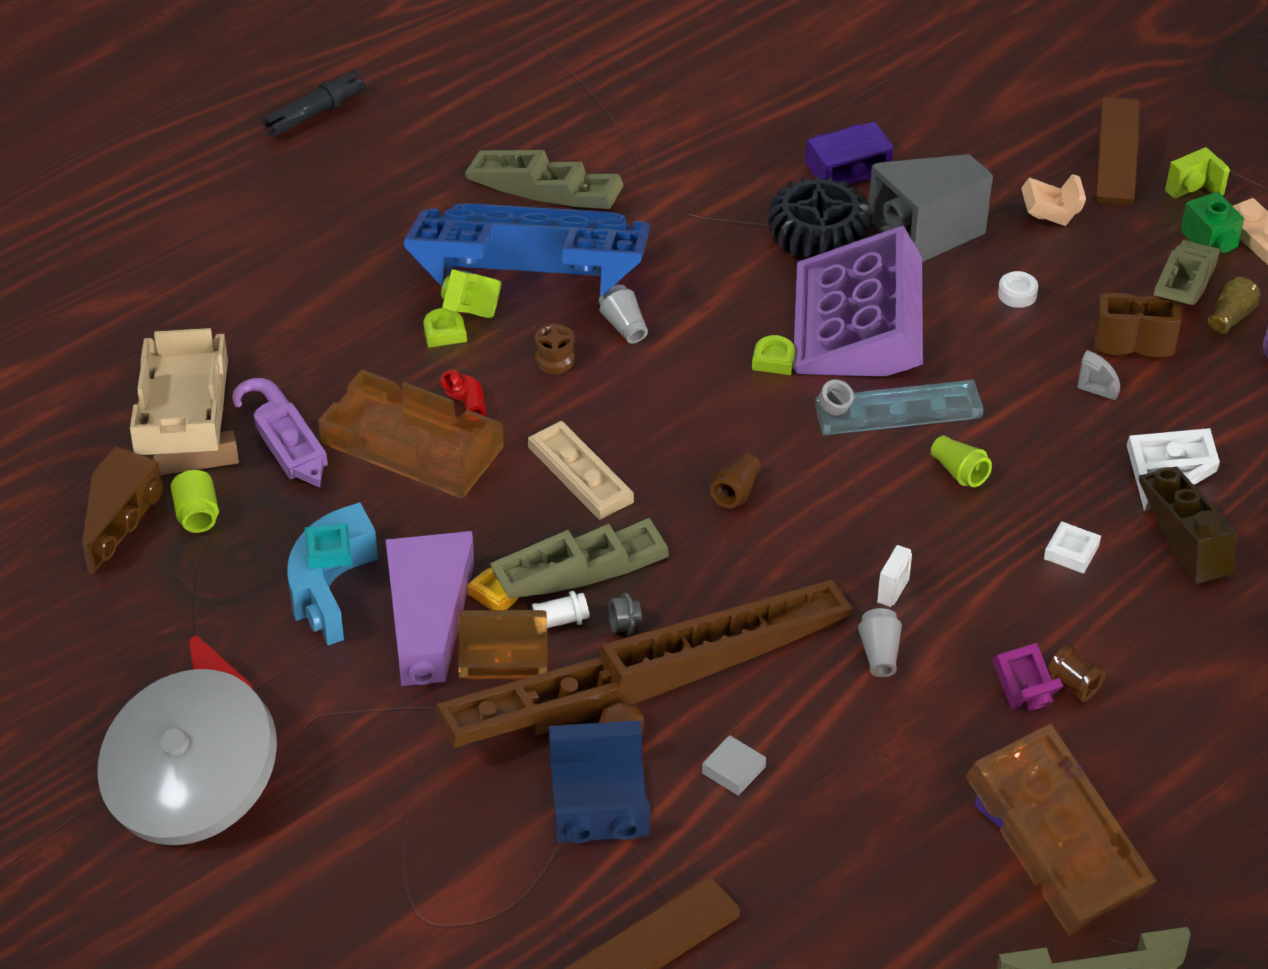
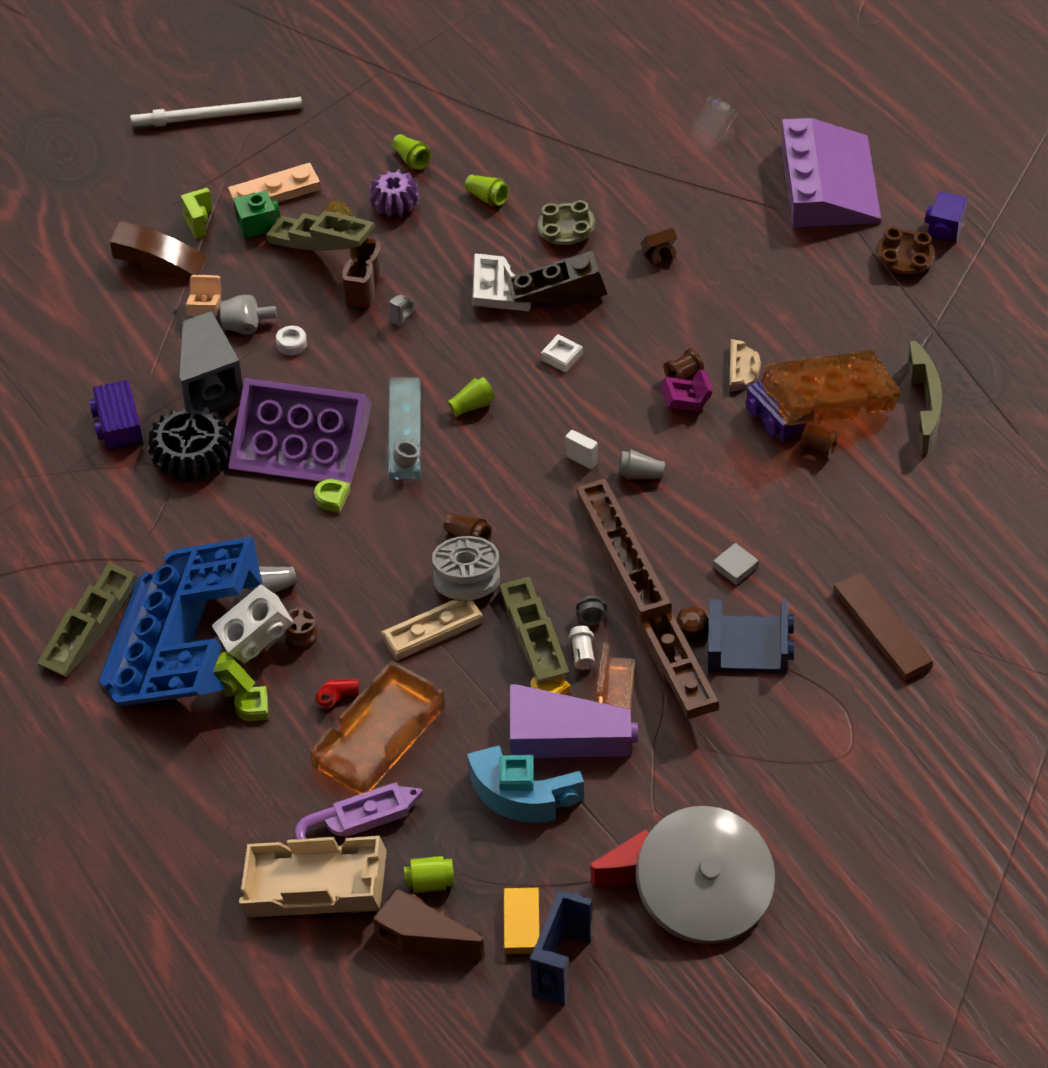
camera: 80 degrees left, 5 degrees up
(70, 606) = (550, 971): none -> dark blue panel
(136, 597) = (521, 920): none -> yellow tile
(540, 296) = (252, 624): none -> white brick
(663, 478) = (466, 568): none -> light grey wheel
(978, 840) = (819, 439): none -> reddish brown bush
(1042, 236) = (242, 314): none -> light grey piece
(1107, 747) = (744, 366): none -> tan tile

